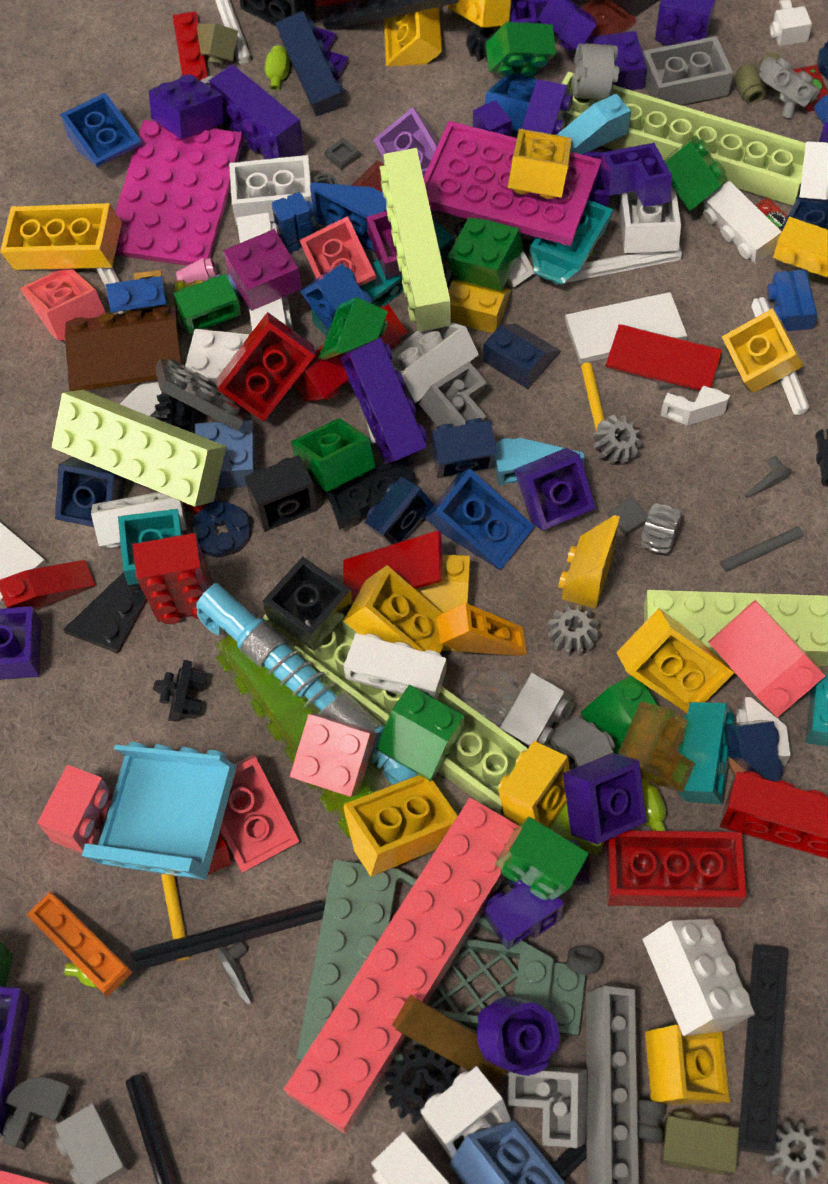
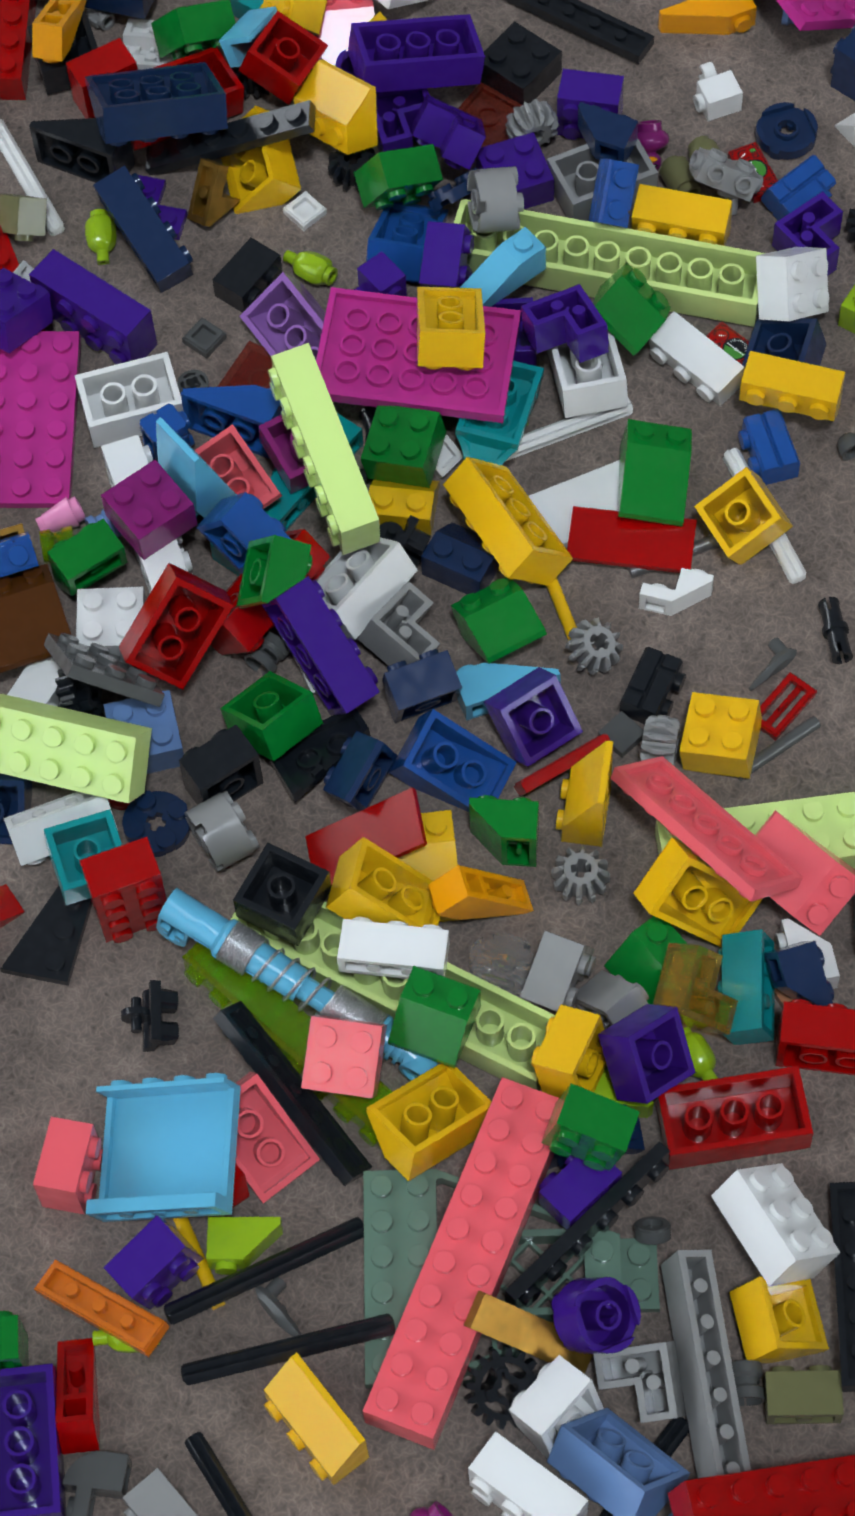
camera: 10 degrees left, 0 degrees up
(39, 1022) = (77, 1396): none -> red slope
(130, 912) = (154, 1263): none -> dark purple brick
(212, 903) = (239, 1241): none -> lime slope
(234, 1012) = (282, 1350): none -> black axle
(243, 1086) = (315, 1421): none -> yellow slope
(271, 542) = (221, 830): none -> light grey brick
(291, 792) = (285, 1084): none -> black plate
(301, 242) = (189, 470): none -> medium azure slope
(342, 404) = (268, 654): none -> dark grey wheel
(365, 50) = (208, 199): none -> pearl gold slope
(384, 108) = (247, 275): none -> black brick
(438, 111) = (312, 267): none -> lime plant
(441, 70) = (304, 211): none -> white tile
(477, 328) = (411, 539): none -> black hips
(514, 956) = (579, 1236): none -> black plate
(515, 579) = (506, 828): none -> green slope
(539, 404) = (497, 619): none -> green slope
(558, 69) = (448, 194): none -> dark blue plate
(560, 326) = (507, 522): none -> yellow brick
(566, 535) = (558, 766): none -> red tile
(638, 20) = (535, 118): none -> light grey gear
(662, 479) = (653, 685): none -> black brick
(691, 607) = (706, 828): none -> coral plate
(692, 305) = (654, 472): none -> green slope
(694, 79) = (613, 192): none -> blue brick
(696, 36) = (607, 133): none -> dark blue slope
(715, 529) = (720, 735): none -> yellow brick
(733, 50) = (652, 139): none -> magenta animal
(748, 105) = (682, 214): none -> yellow slope
(756, 529) = (810, 693): none -> red tile

